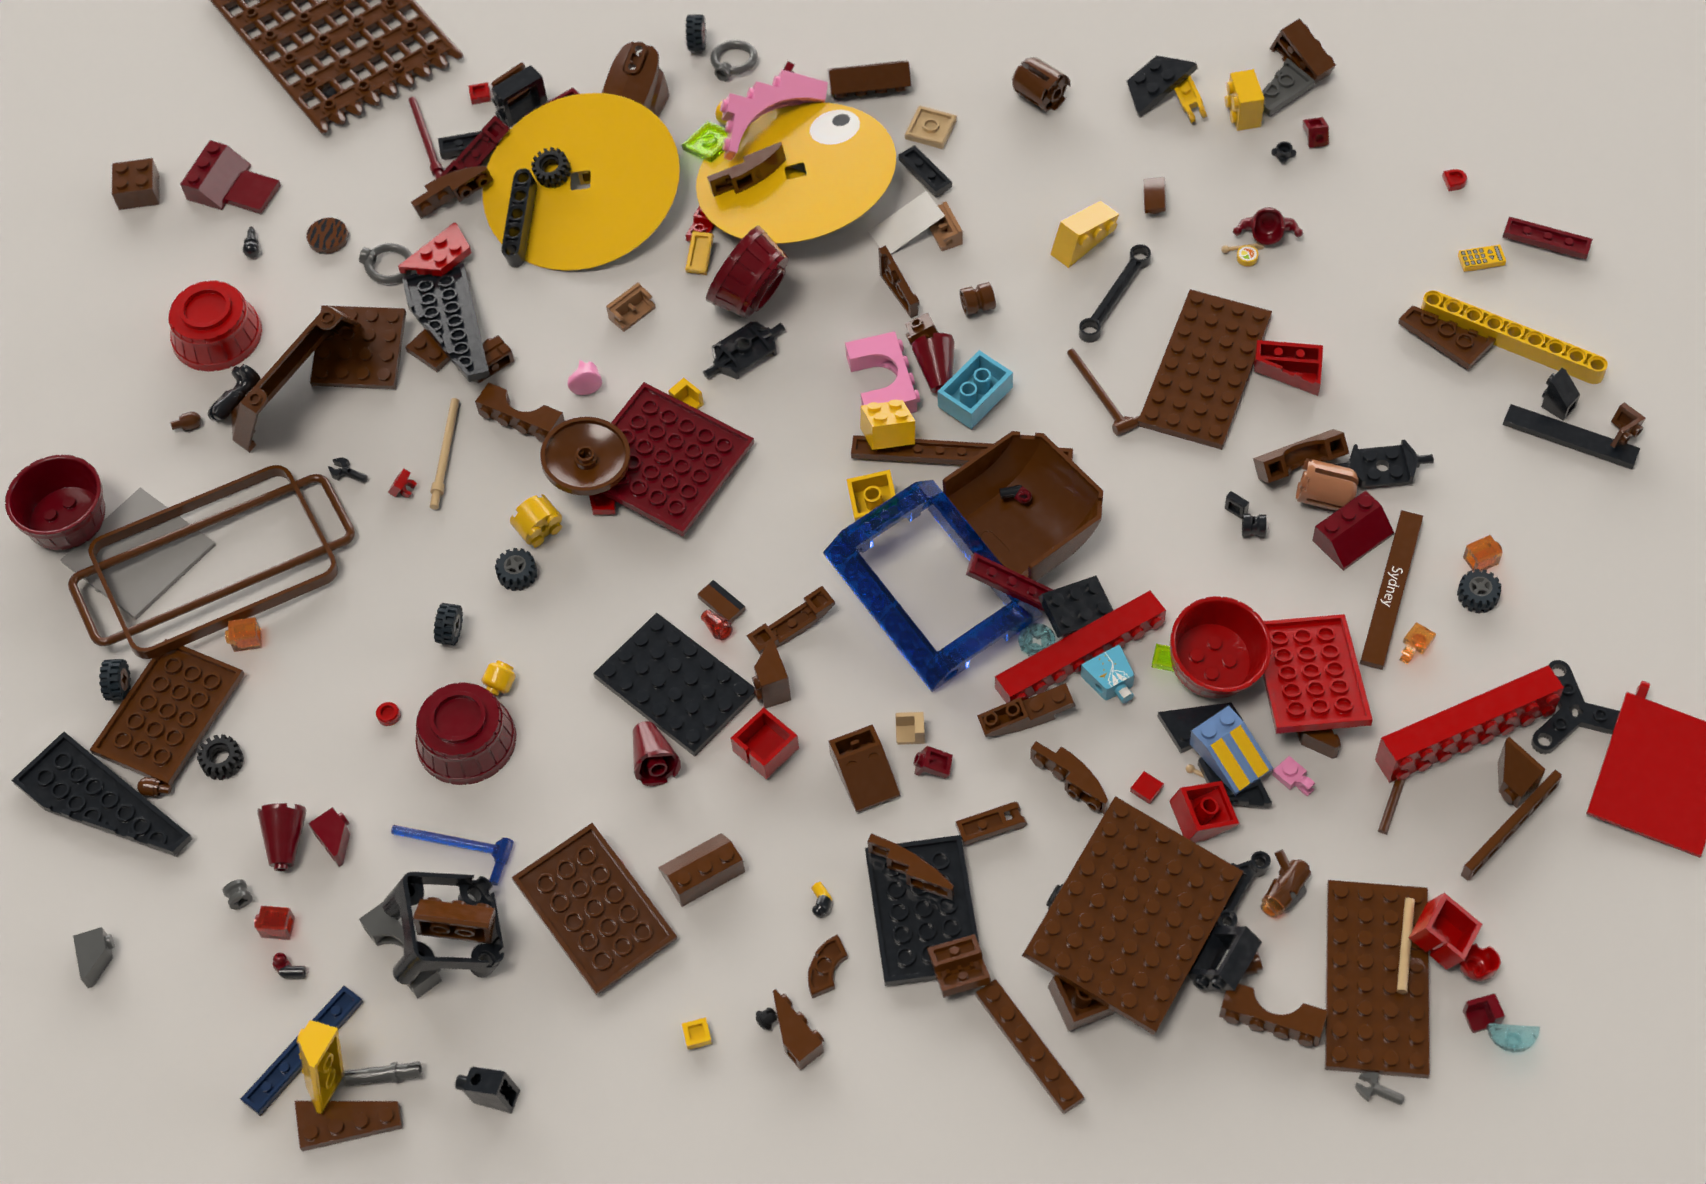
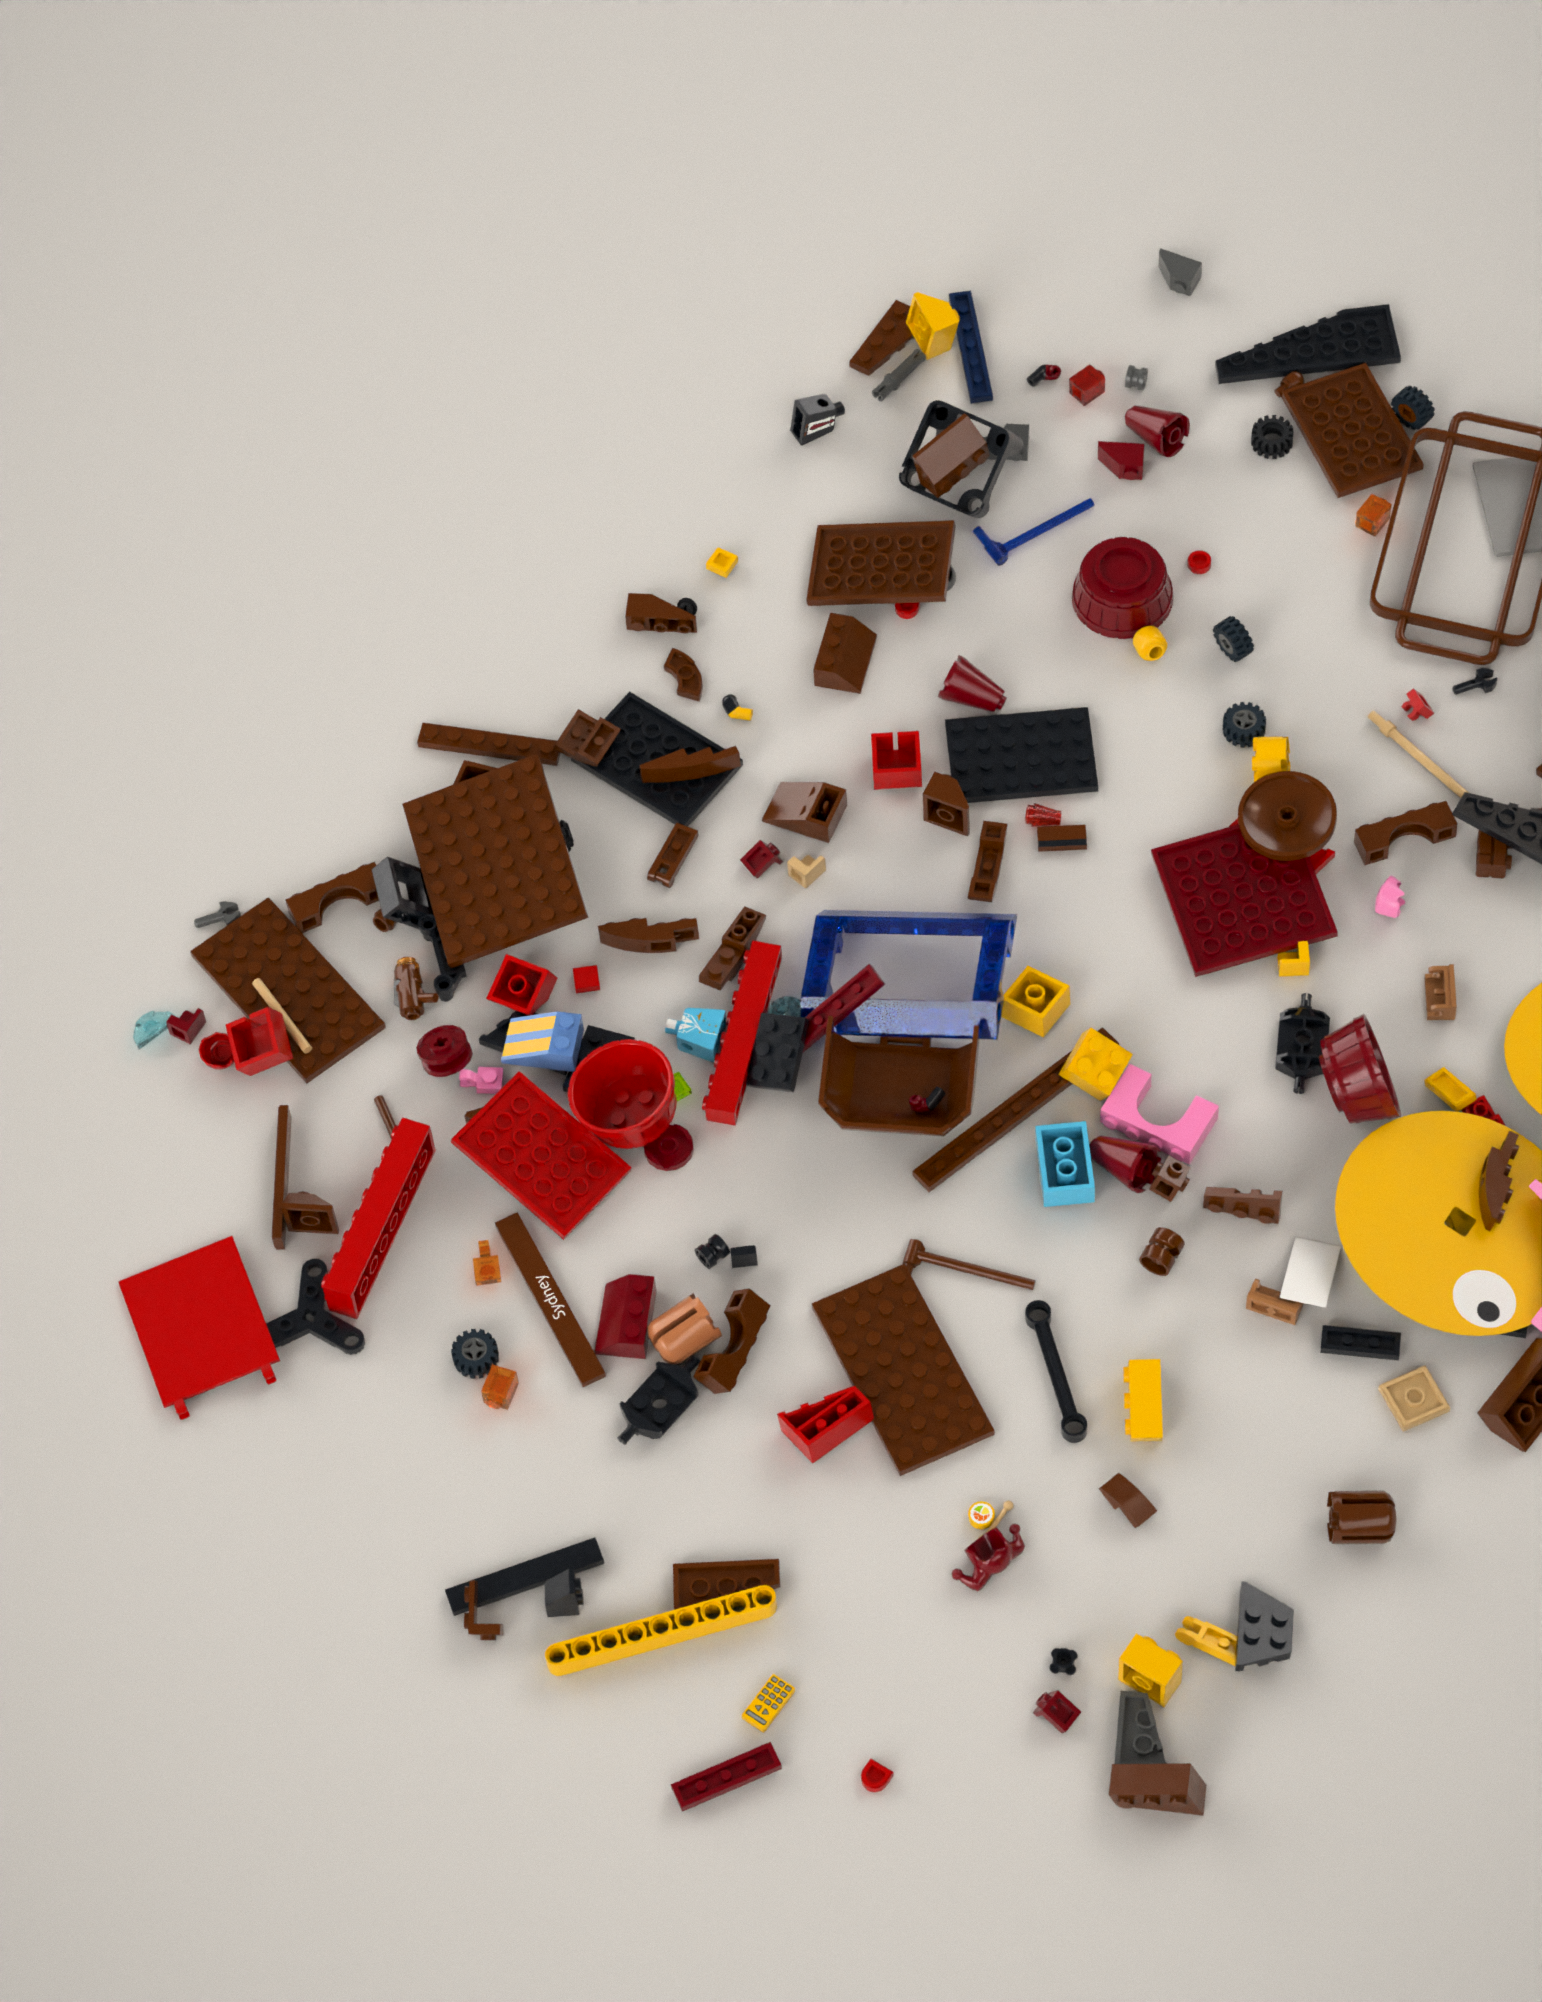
camera: 135 degrees right, 0 degrees up
(1320, 804) = (444, 1050): none -> dark red wheel

